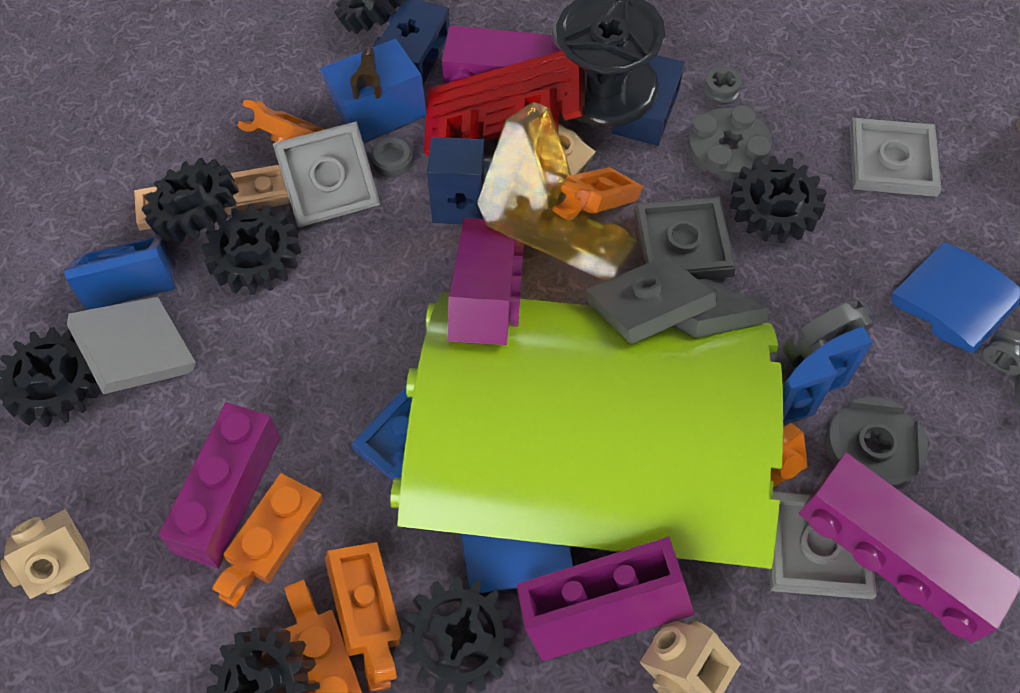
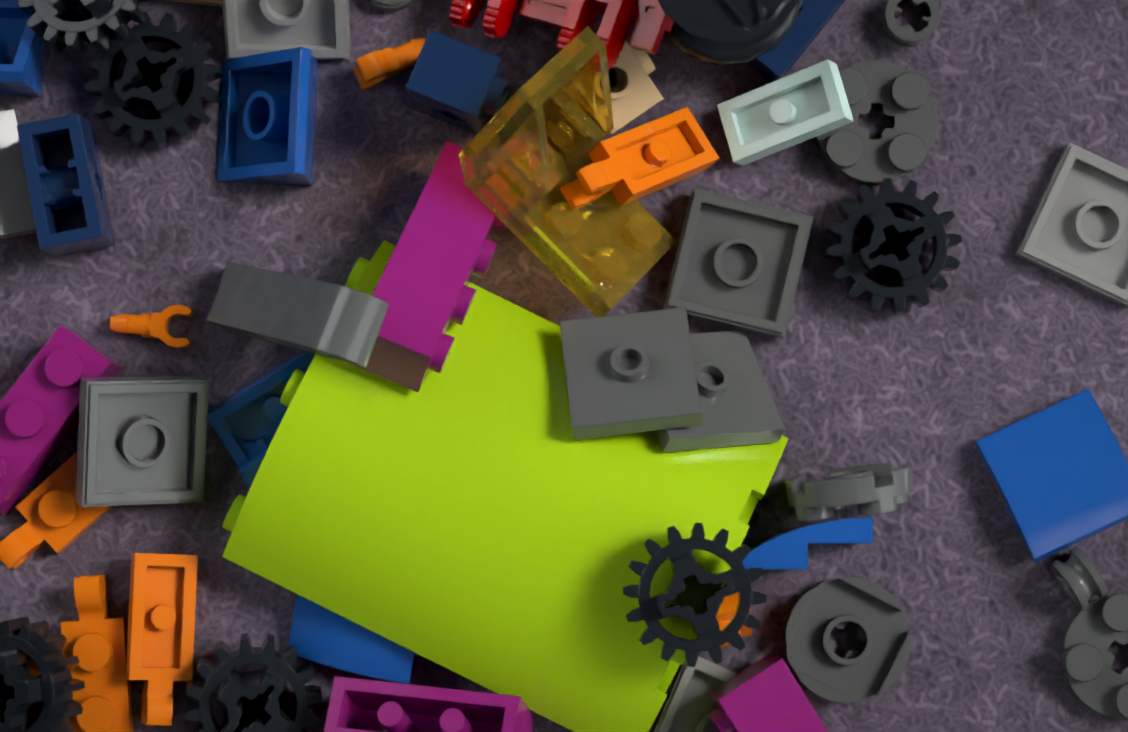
camera: 20 degrees right, 25 degrees up
(207, 321) = (65, 185): none -> dark blue brick
(296, 400) = (152, 325): none -> orange piece
(308, 468) = (141, 440): none -> dark grey plate
(338, 247) = (268, 118): none -> blue slope
(403, 315) = (299, 313): none -> dark grey beam
(406, 199) = (387, 63): none -> orange piece
(674, 145) = (785, 112): none -> light aqua plate
(775, 422) = (703, 623): none -> black gear

